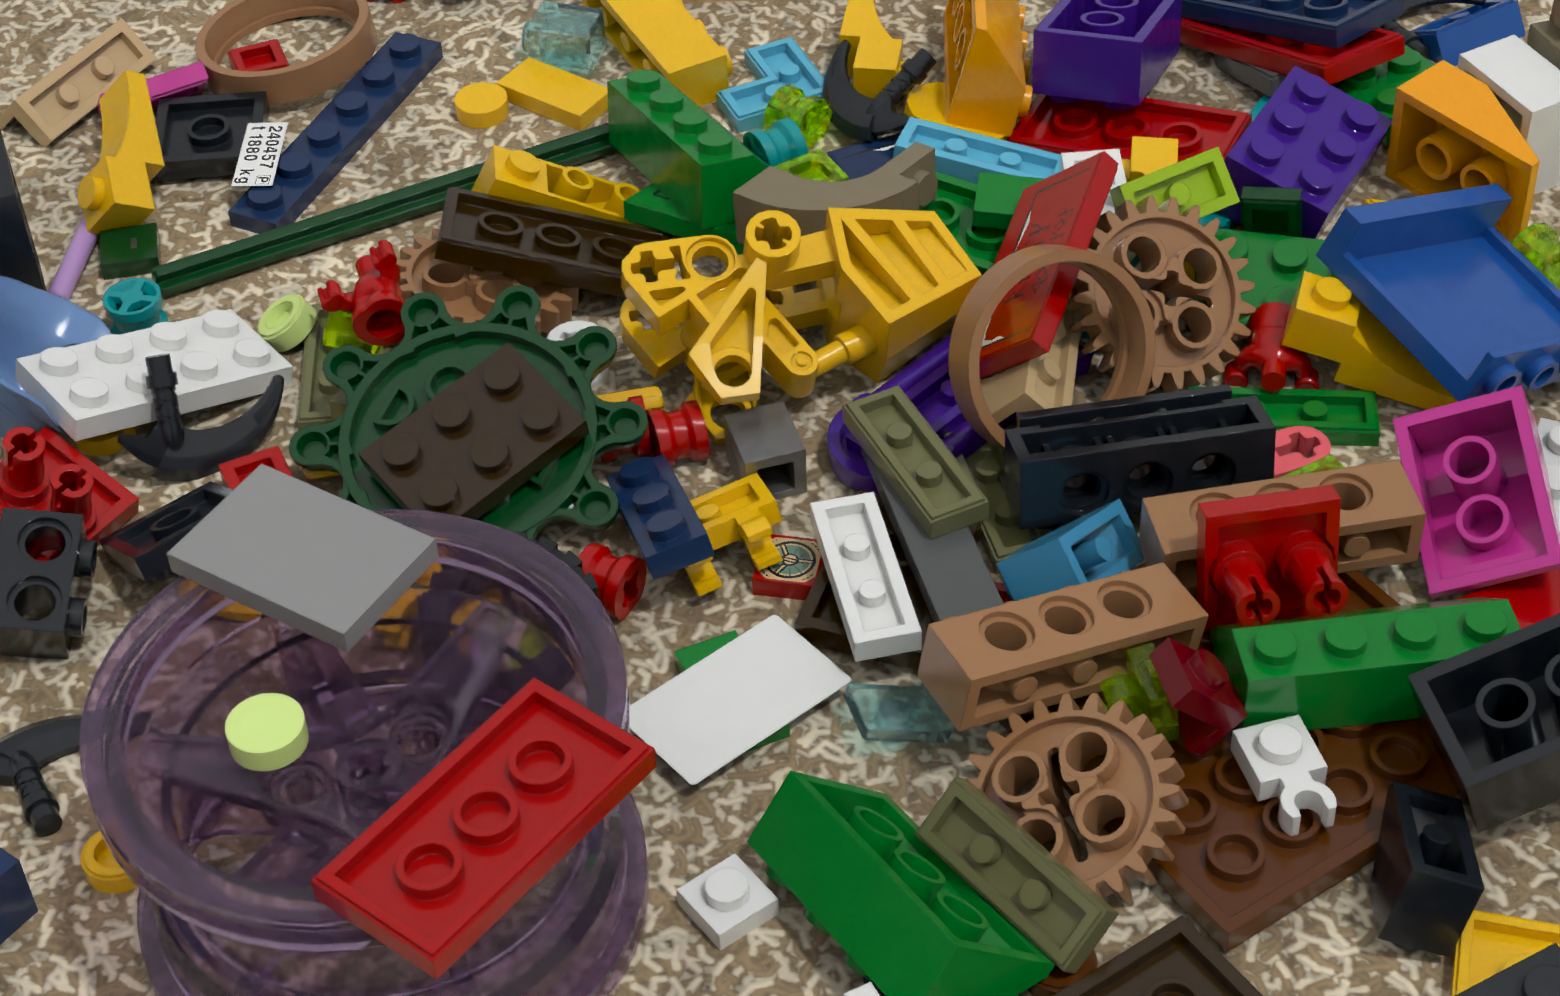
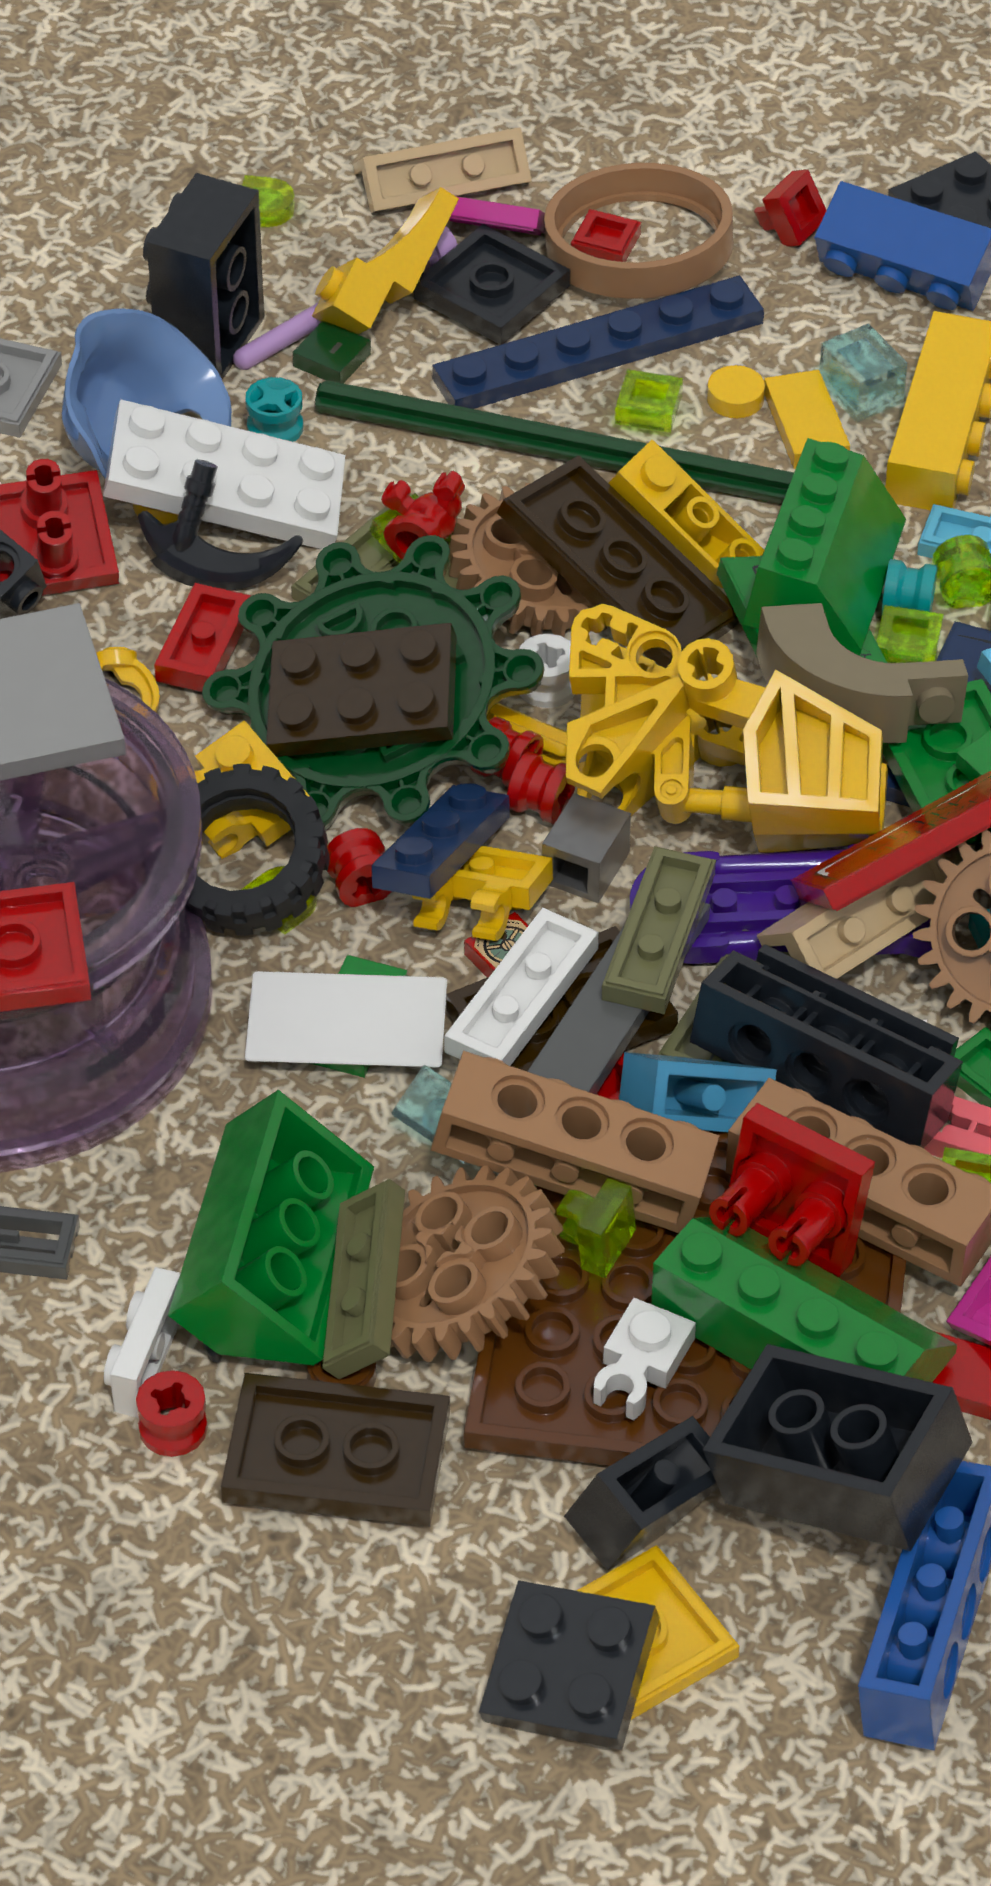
camera: 40 degrees right, 5 degrees up
(144, 543) = (124, 617): black plate -> none
(259, 154) = (501, 327): white sticker -> none
(287, 322) = (364, 494): yellowish green tile -> none
(428, 142) = (649, 401): none -> clear neon green plate
(727, 901) = (181, 1157): white plate -> none
(1131, 308) = (881, 826): medium nougat piece -> none
(1200, 691) = (623, 1244): dark red bracket -> none

